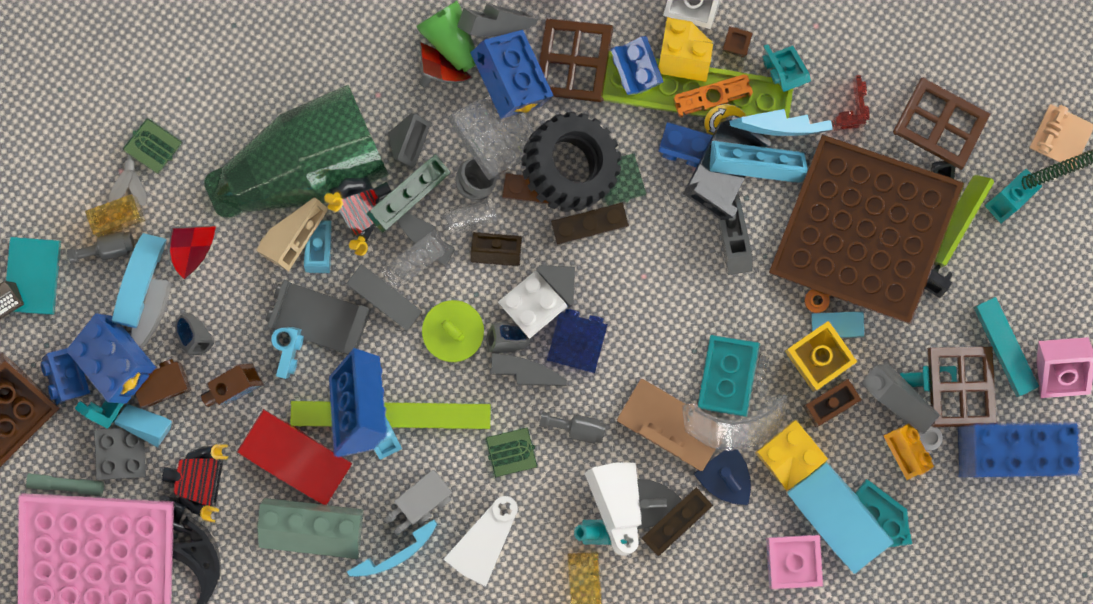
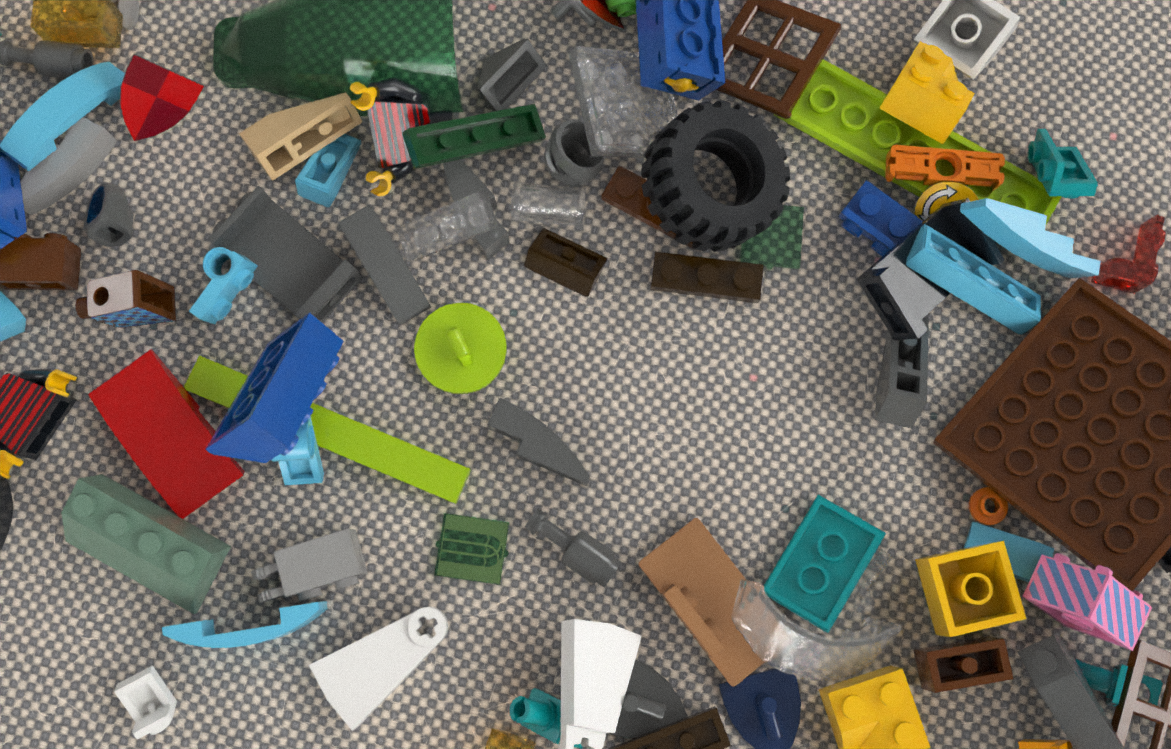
camera: 20 degrees right, 5 degrees down
(506, 338) = (531, 386): dark grey rock -> none
(532, 304) = (584, 353): white plate -> none
(560, 279) = (636, 335): dark grey slope -> none
(577, 341) = (626, 429): clear blue plate -> none
(637, 66) = (856, 87): blue bracket -> none
(737, 41) = (1001, 113): reddish brown plate -> none
(889, 336) = (1088, 600): none -> bright pink container

